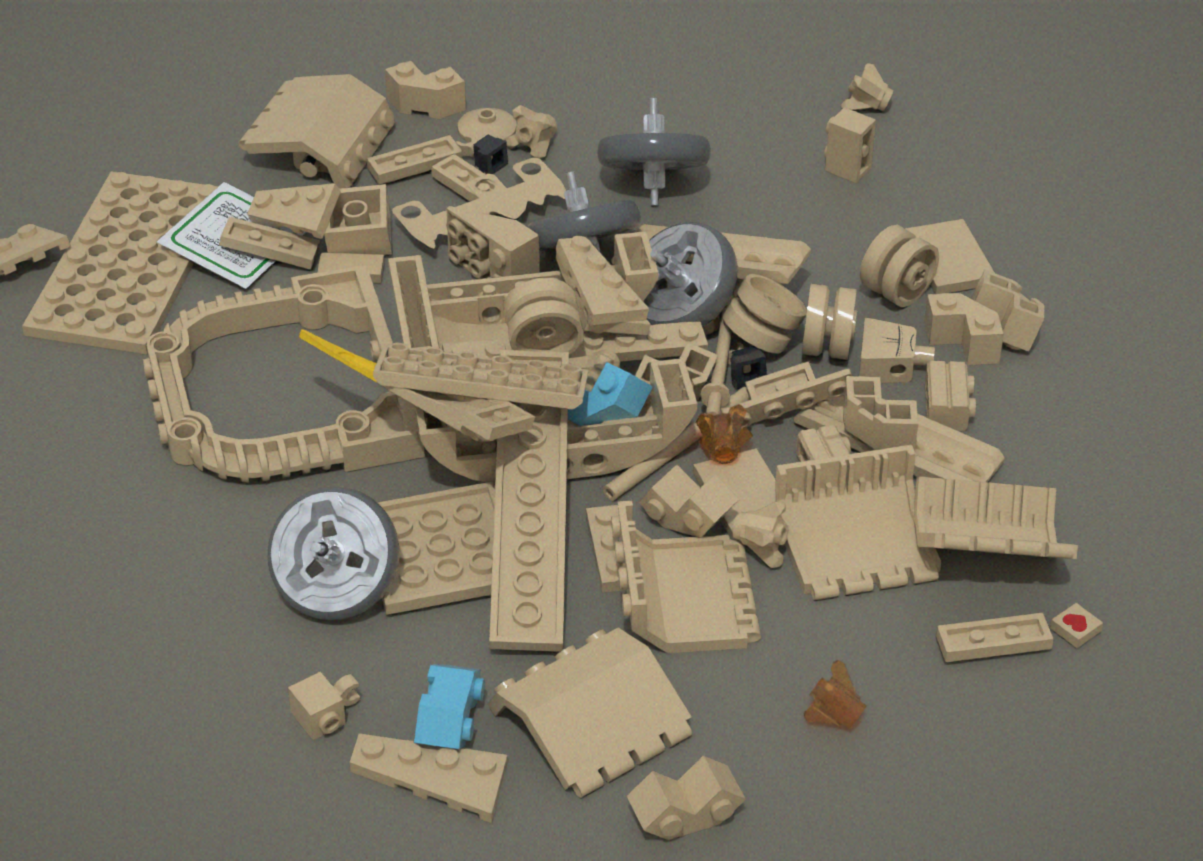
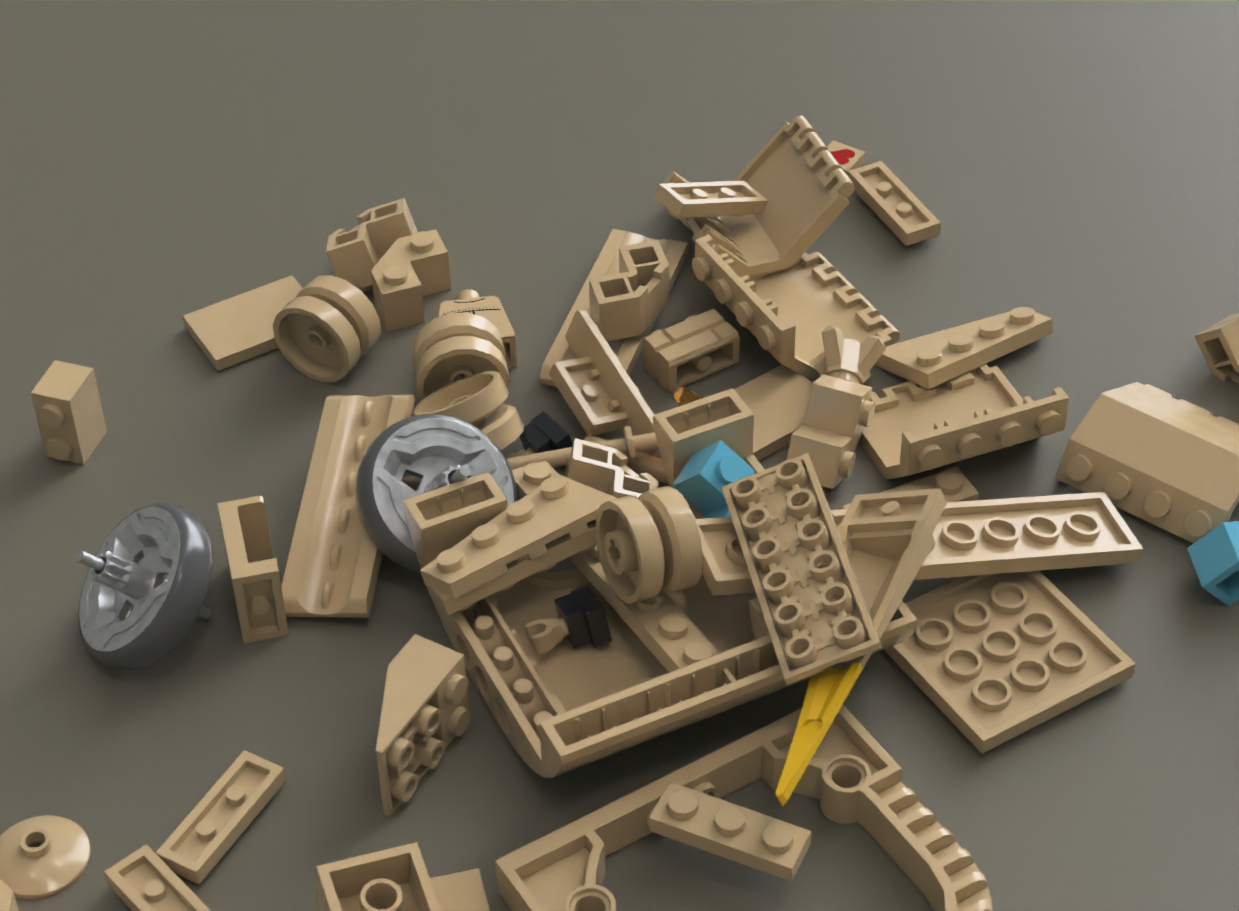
camera: 105 degrees left, 0 degrees up
(299, 541) = (1117, 701): flat silver wheel -> none
(315, 365) = (730, 831): none -> tan plate
(488, 153) = (136, 819): black piece -> none
(502, 200) = (270, 762): tan piece -> none
(532, 130) = (75, 768): tan rock -> none
(585, 220) = (316, 598): dark grey wheel -> none
(665, 196) = (253, 569): none -> tan panel
(778, 622) = (962, 348): none -> tan wing
(835, 699) = (1053, 284): clear orange rock -> none
(948, 394) = (534, 278): tan brick -> none
(986, 484) = (710, 199): none -> tan plate

